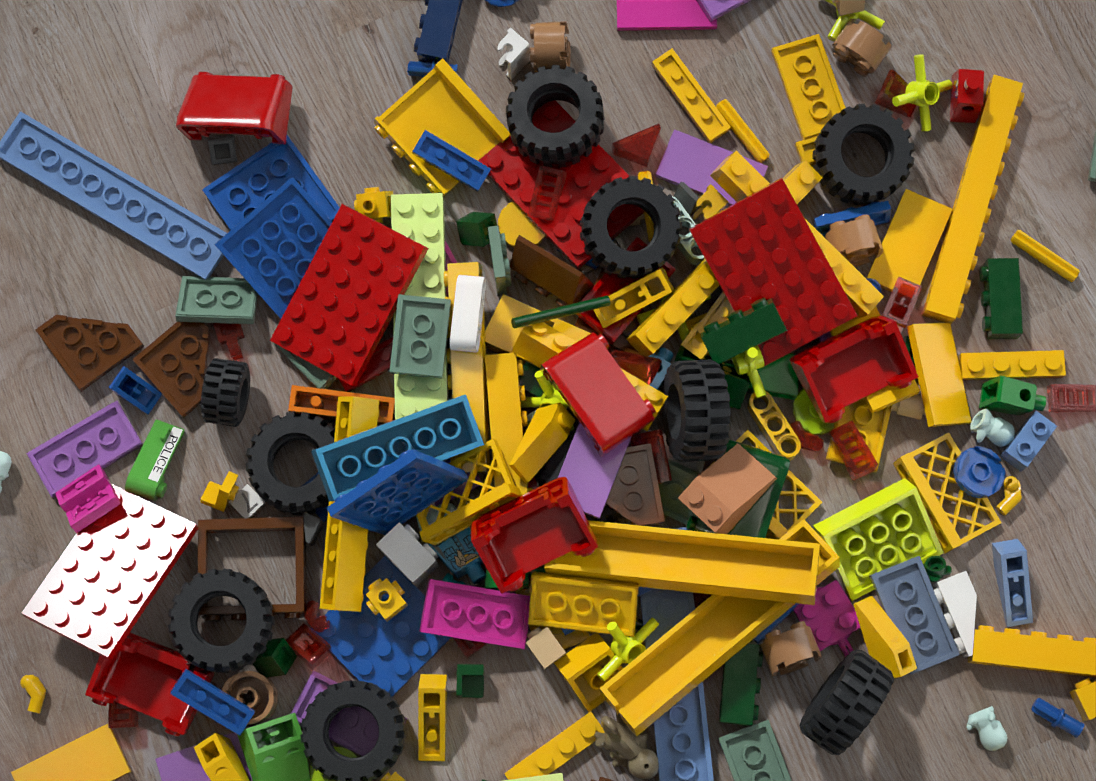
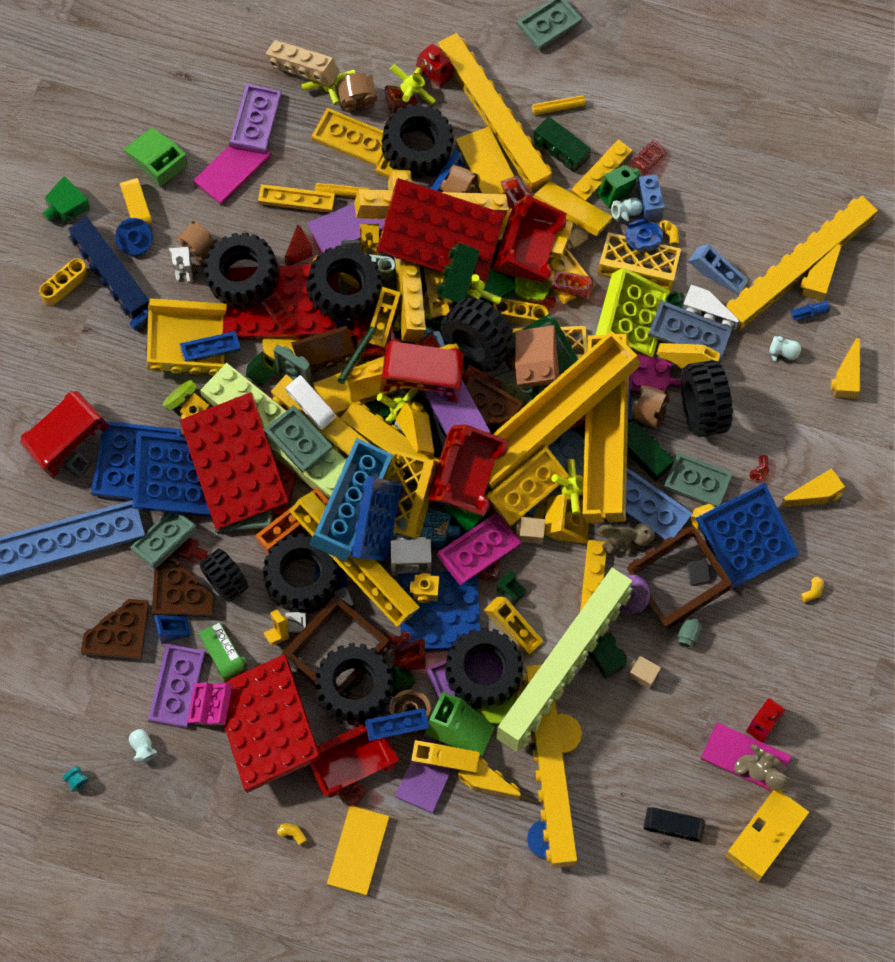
camera: 50 degrees left, 10 degrees down
(374, 177) = (179, 395): none -> lime tile

